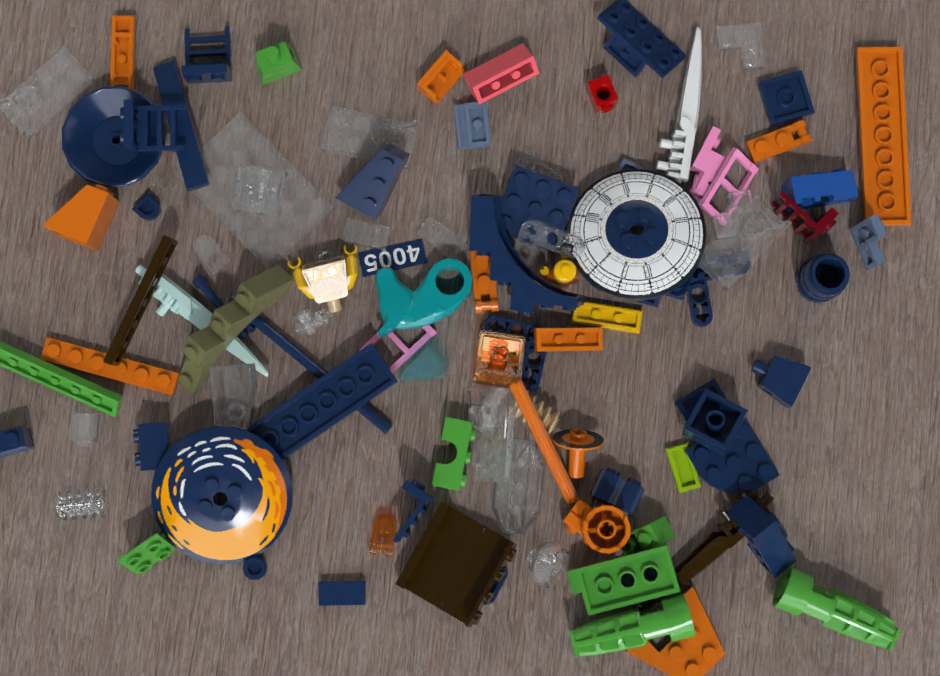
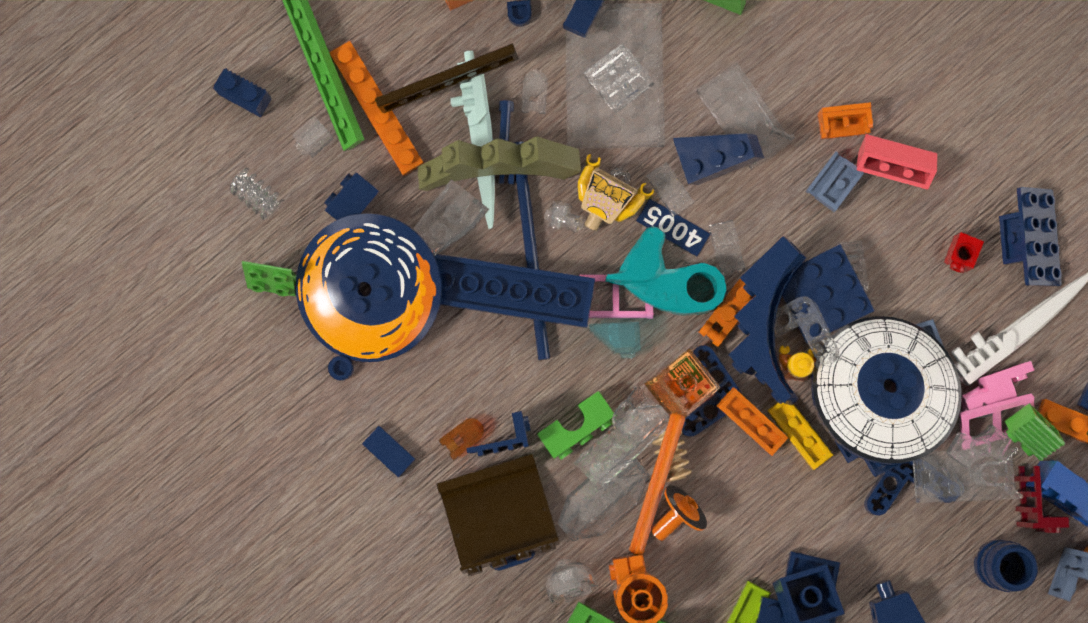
camera: 45 degrees right, 0 degrees up
(617, 491) = (678, 578): dark blue brick -> none
(759, 171) = (1034, 432): none -> bright green brick

